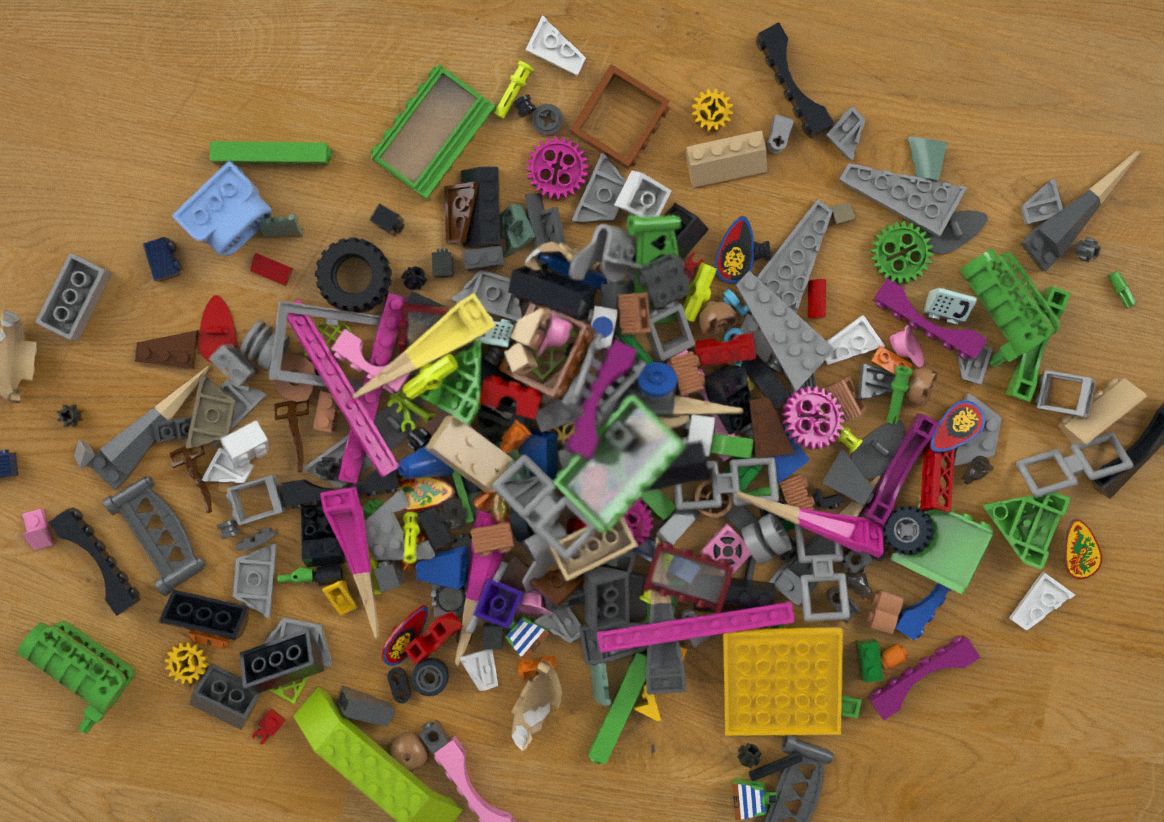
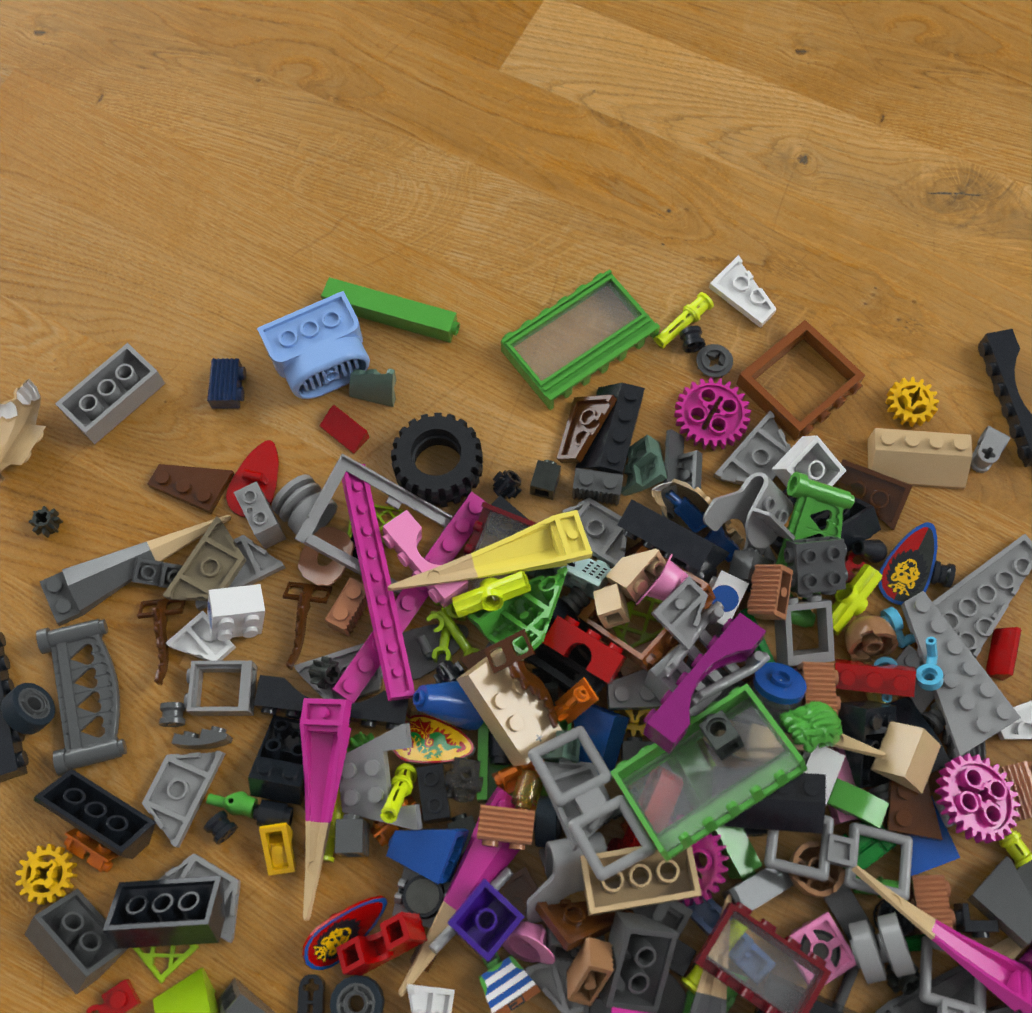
camera: 20 degrees right, 20 degrees down
(83, 453) = (41, 569): light grey slope -> none
(122, 558) = (28, 708): none -> black wheel
(294, 595) = (220, 827): none -> black wheel
(387, 220) = (497, 410): black brick -> none
(474, 436) = (519, 671): none -> reddish brown piece
(492, 636) = (462, 970): pearl dark grey brick -> none
(572, 353) = (682, 611): none -> light grey wing
(576, 613) = (589, 971): none -> medium nougat brick
(686, 407) = (813, 725): none -> bright green hair
(698, 196) = (881, 491): none -> reddish brown wing
(704, 248) = (871, 550): none -> black cone
(758, 404) = (909, 755): none -> tan slope
(763, 334) = (930, 669): none -> medium azure plate

